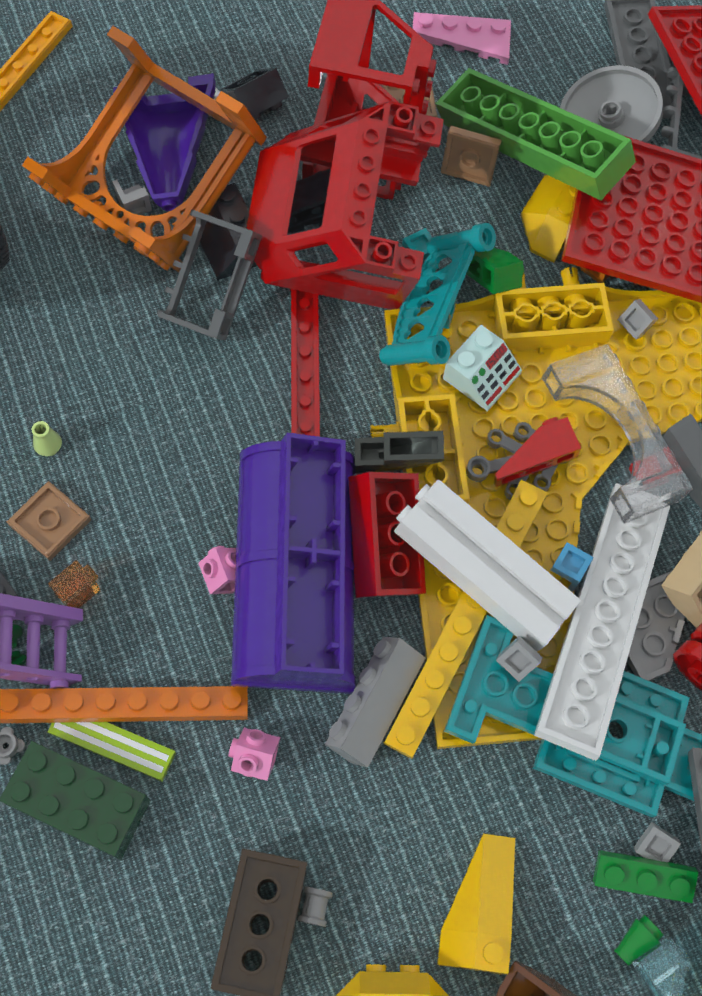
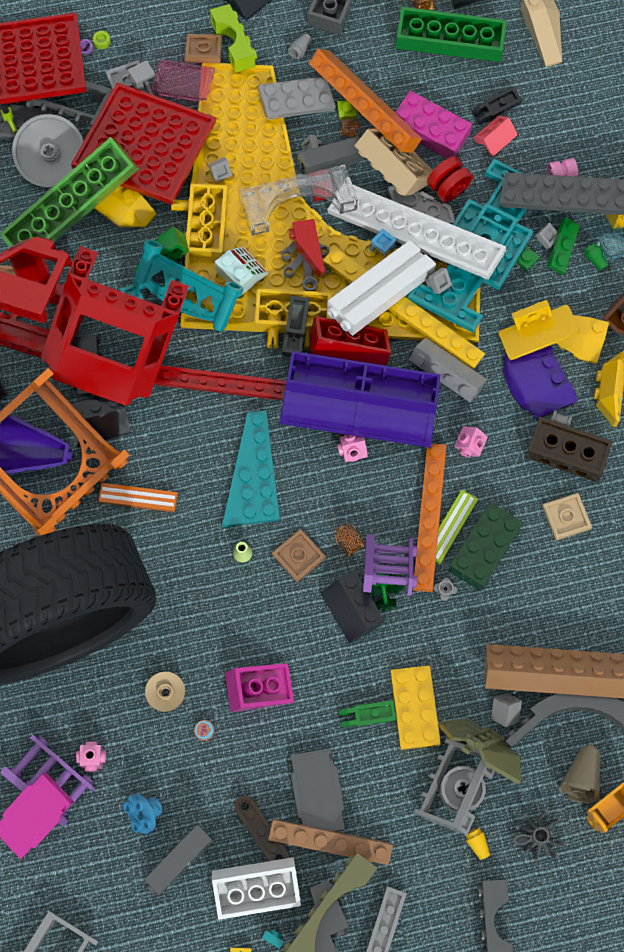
camera: 80 degrees left, 5 degrees up
(120, 300) = (138, 497): none -> orange tile
(133, 199) = (55, 482): light grey panel -> none
(145, 939) = (566, 516): none -> tan tile
(152, 443) = (253, 485): none -> teal wing
(246, 252) = (135, 398): dark grey hinge -> none
(389, 859) = (538, 382): none -> dark purple slope
(470, 156) = (71, 242): medium nougat tile -> none
(473, 845) = (537, 328): none -> yellow bracket
(607, 815) = (527, 259): none -> green plate
(650, 59) = (9, 117): none -> lime hand

